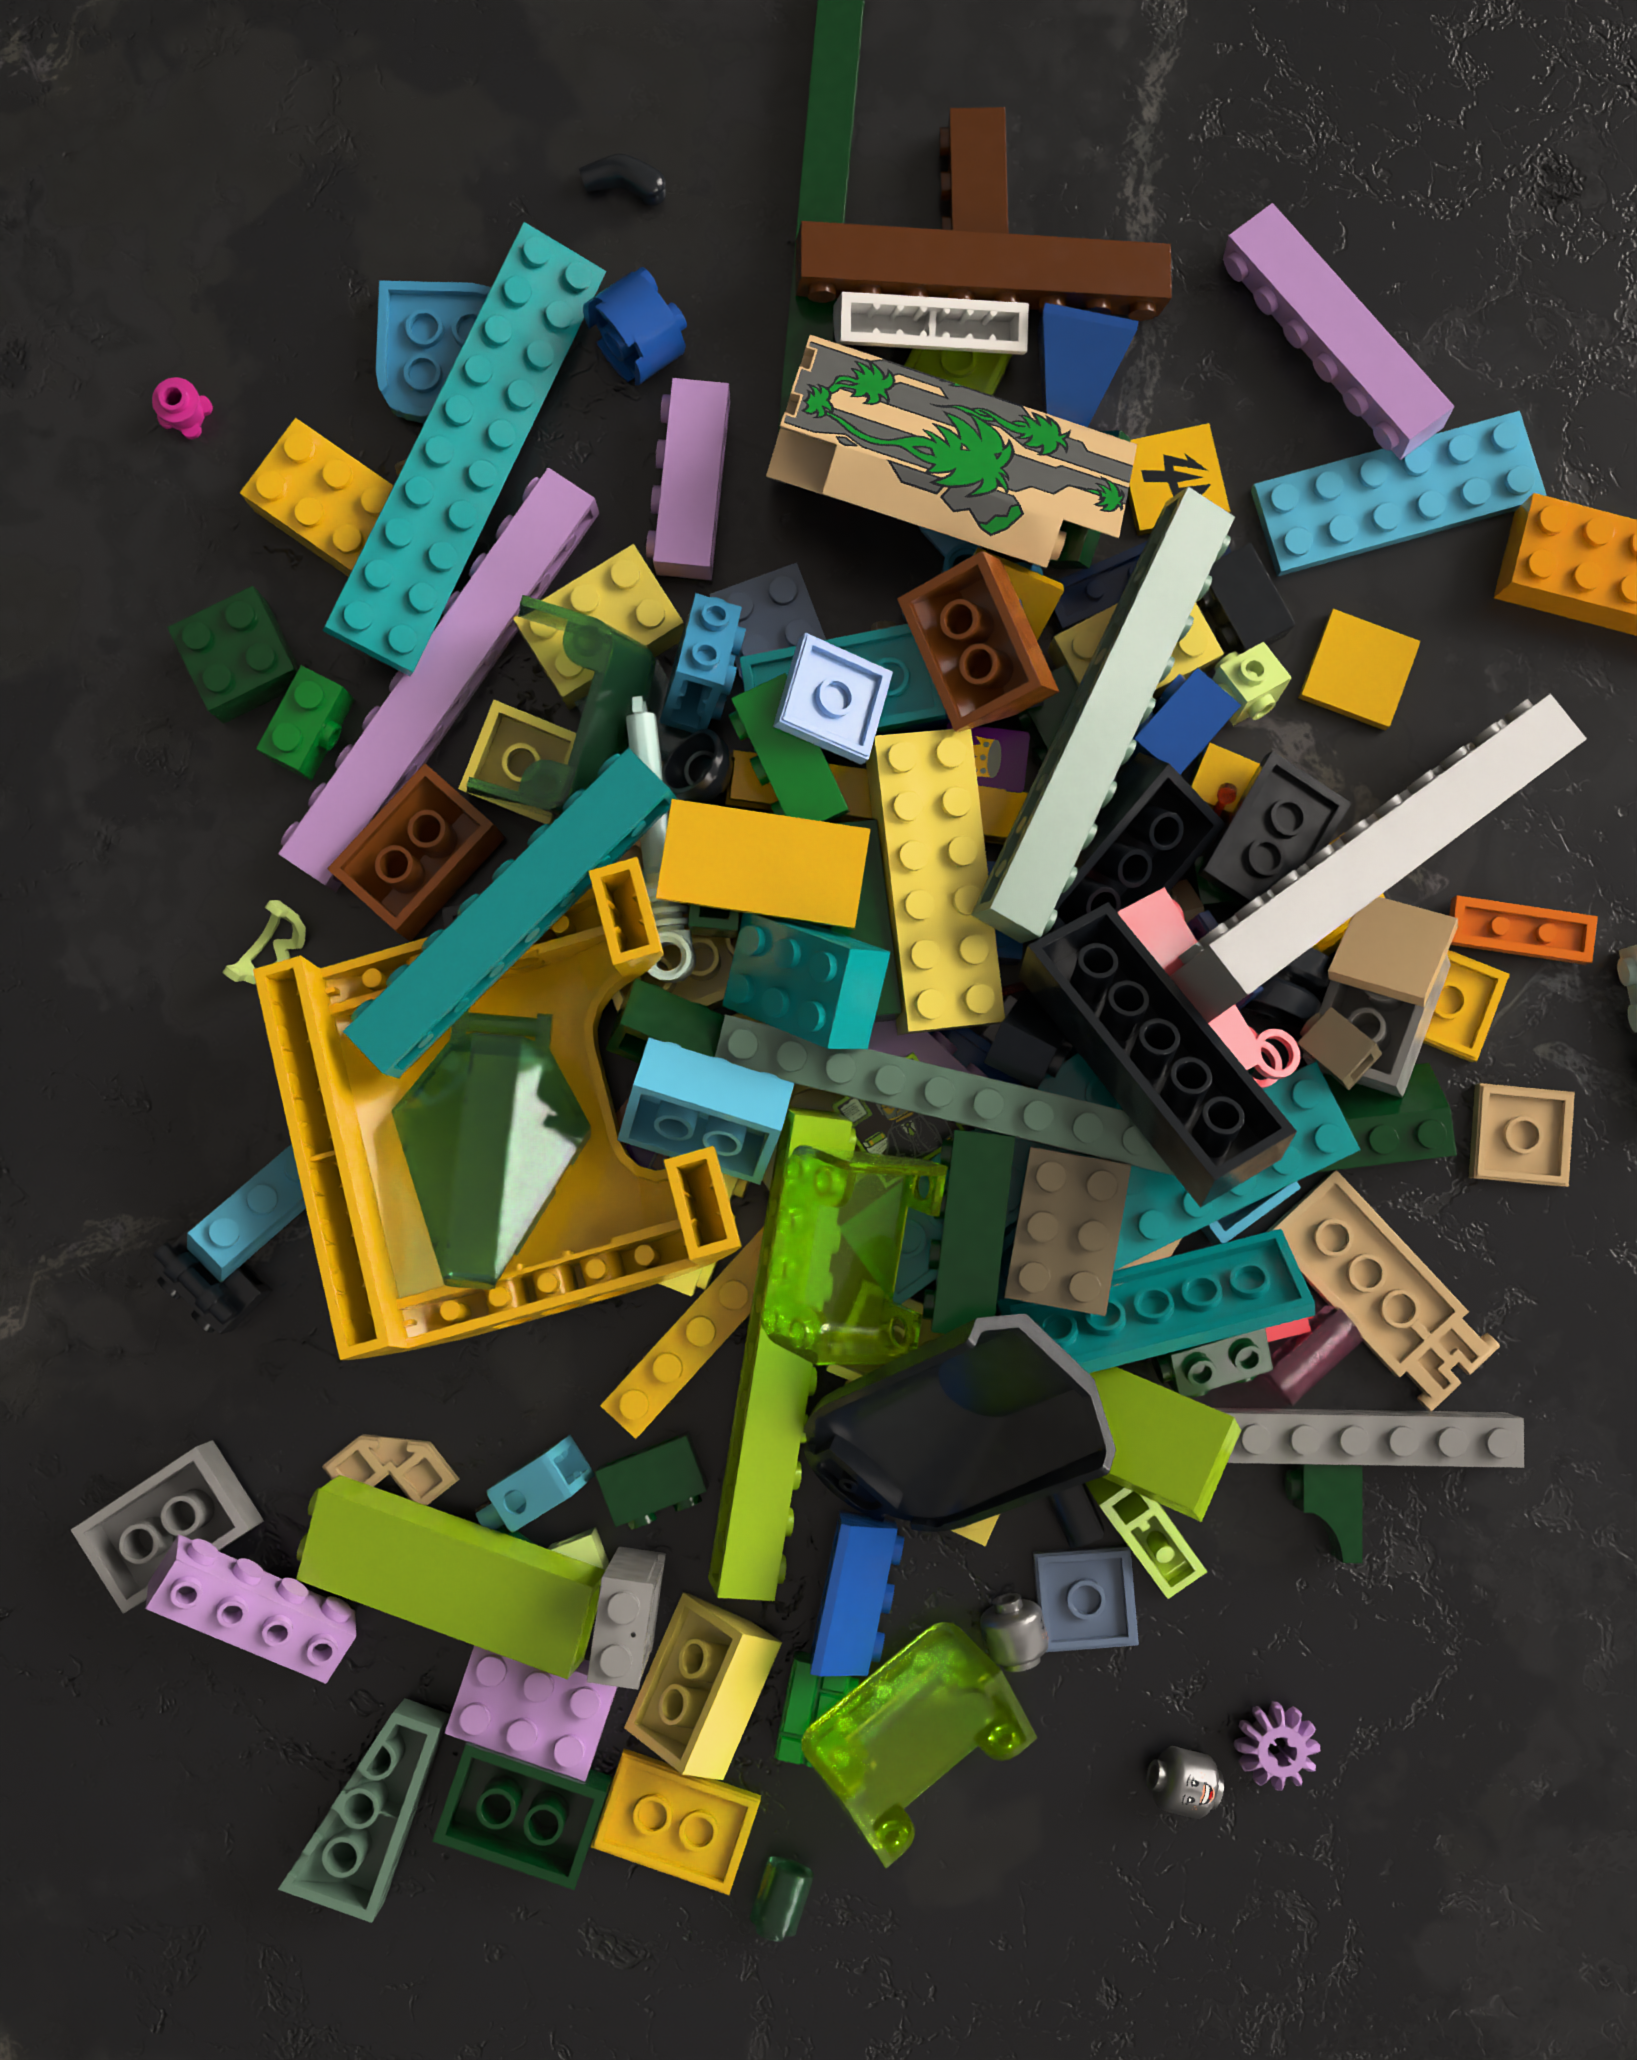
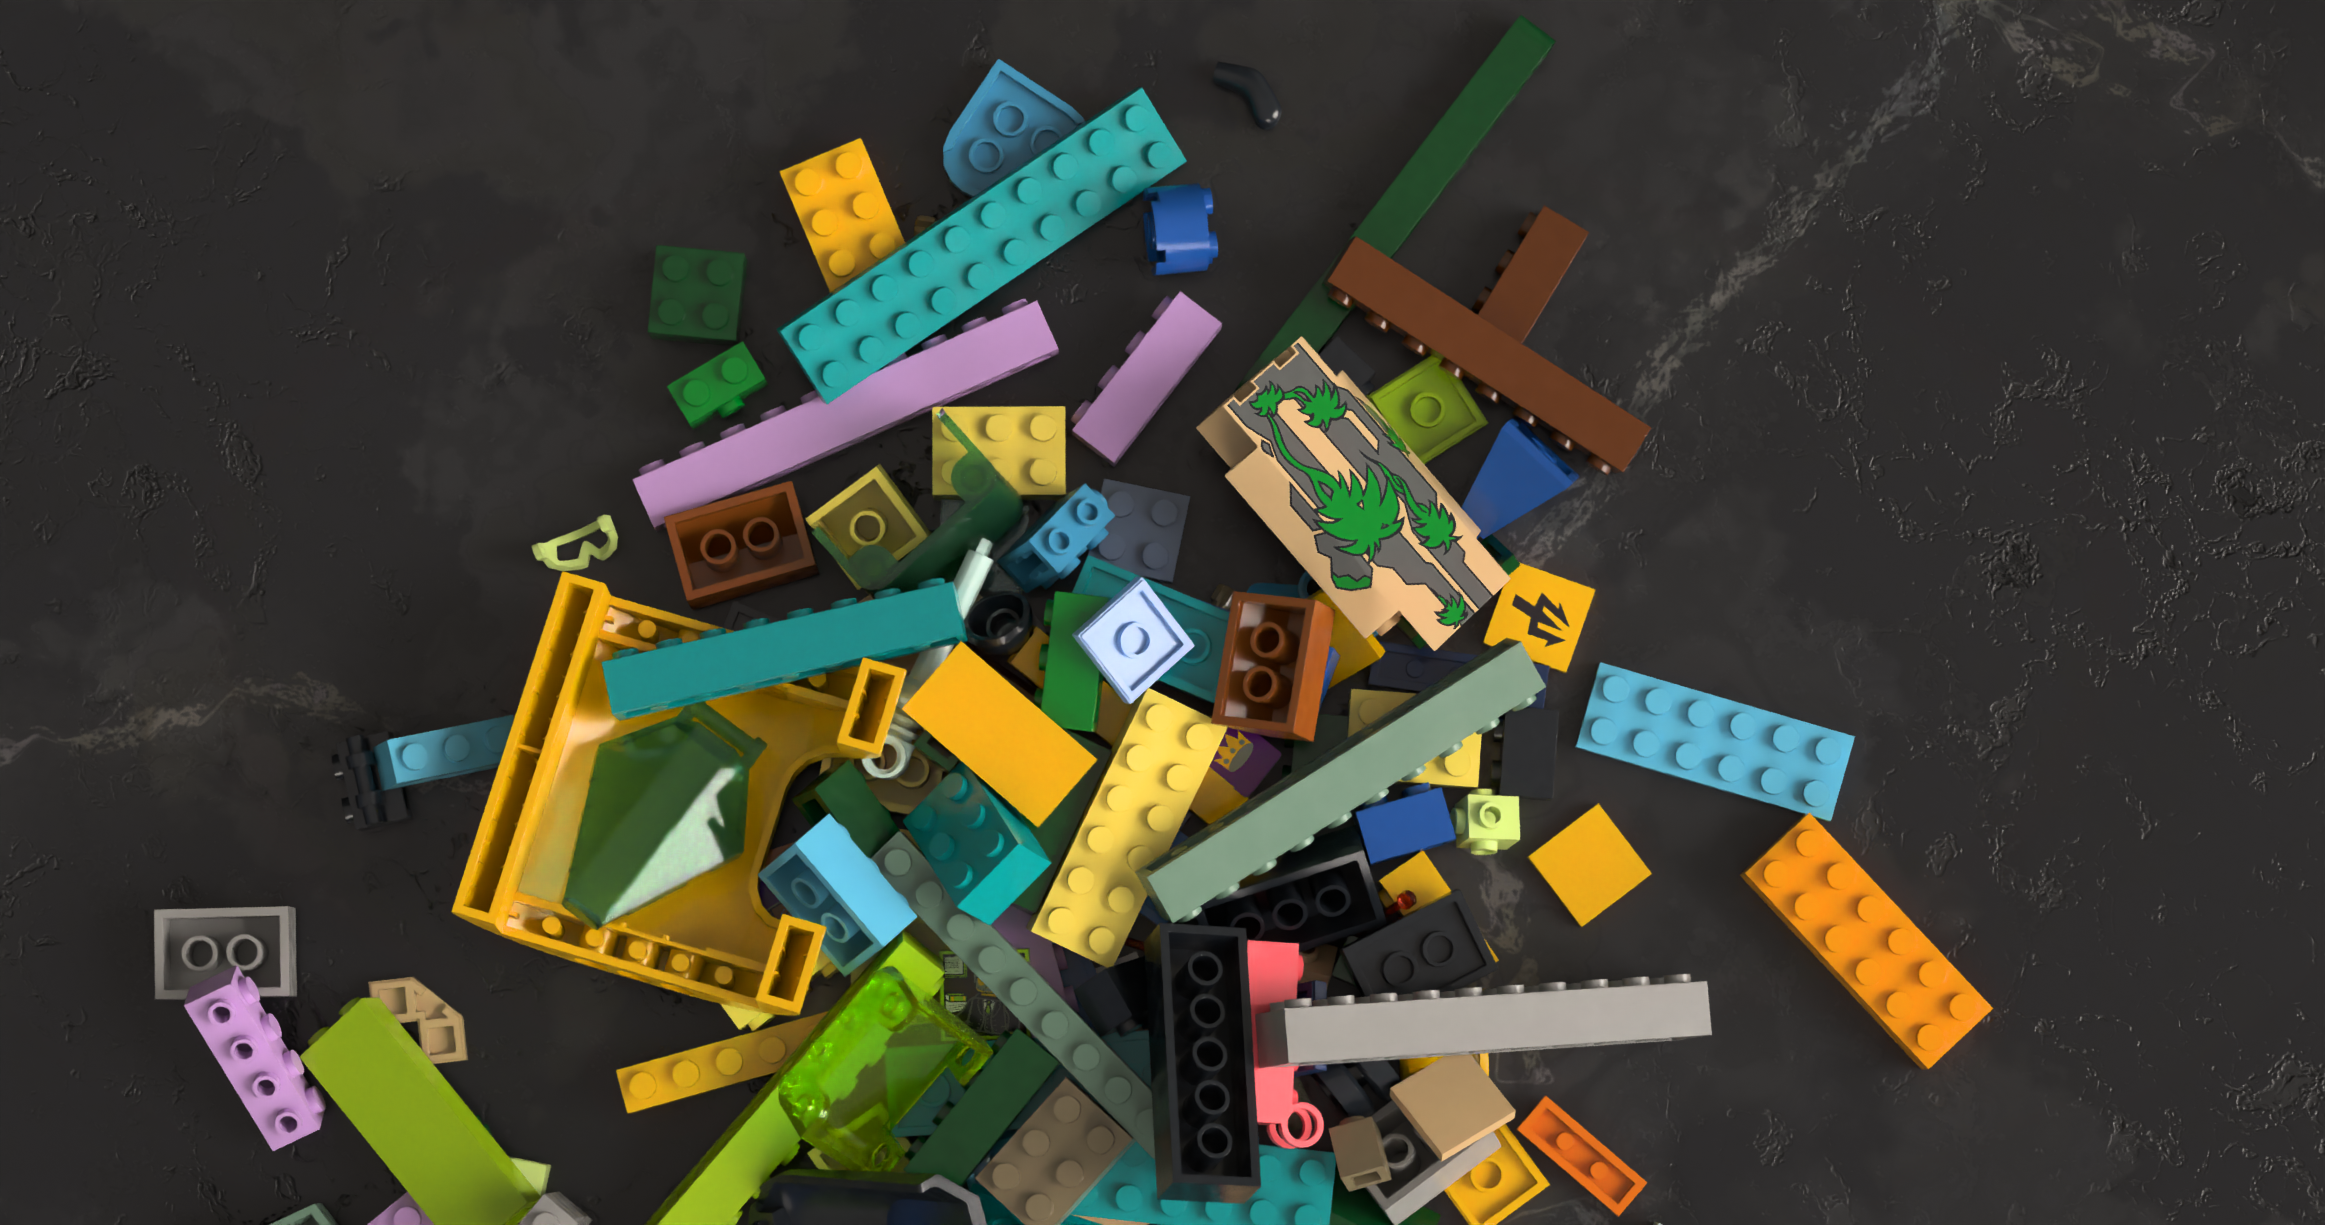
camera: 30 degrees right, 0 degrees up
(180, 406) = (775, 75): dark pink brick -> none
(535, 1487) = (536, 1102): medium azure torso -> none
(652, 1480) = (619, 1155): dark green brick -> none
(931, 323) = (1411, 378): white brick -> none
(1336, 332) = (1740, 581): lavender brick -> none

